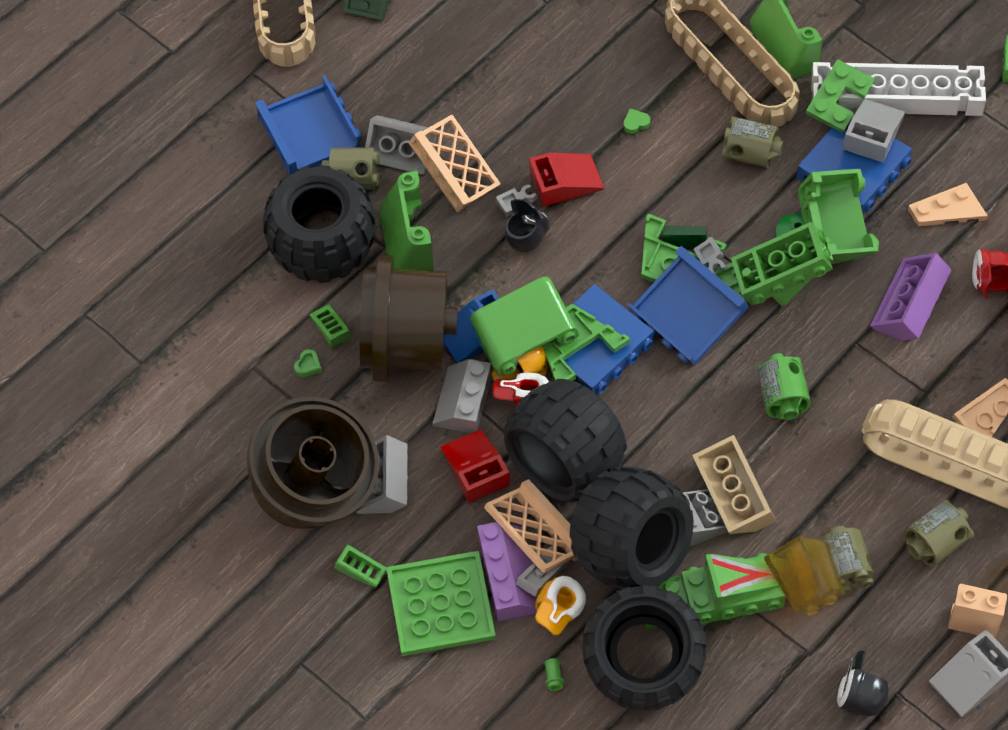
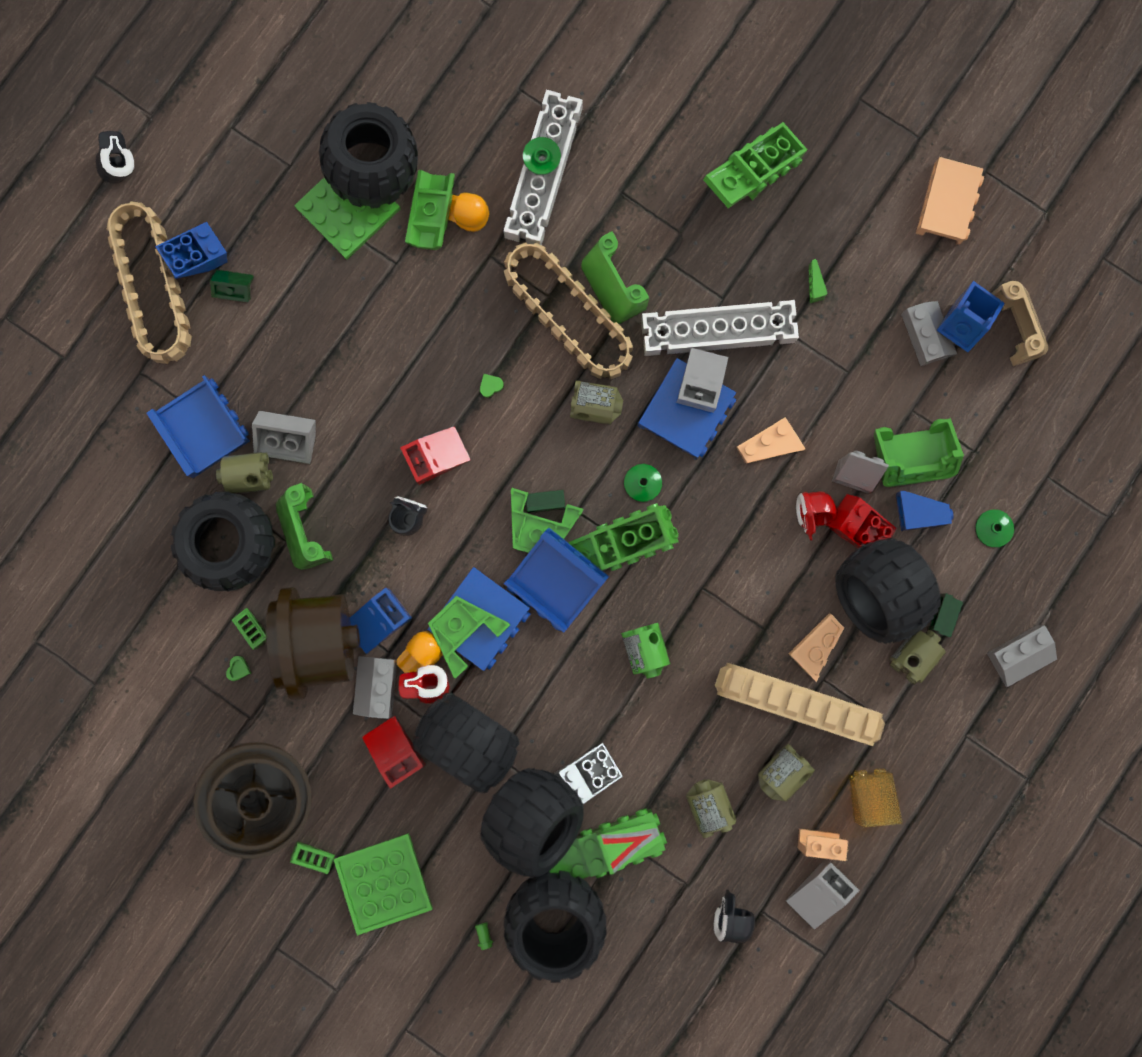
camera: 10 degrees left, 25 degrees up
(391, 484) = (322, 771): light grey slope -> none
(442, 174) = (322, 467): light nougat fence -> none
(503, 565) = (435, 847): medium lavender slope -> none
(504, 199) = (392, 484): light grey plate -> none
(522, 323) = (418, 631): bright green windscreen -> none
(534, 579) = (462, 849): light grey plate -> none
(548, 519) = (461, 796): light nougat fence -> none
(559, 603) = (481, 880): light orange piece -> none
(710, 255) = (570, 527): light grey plate -> none
(734, 487) = (613, 749): tan slope -> none
(806, 574) = (682, 833): clear yellow slope -> none
(824, 104) = (668, 332): bright green plate -> none
(834, 206) = (676, 475): bright green windscreen -> none
(911, 296) = (746, 541): medium lavender slope -> none

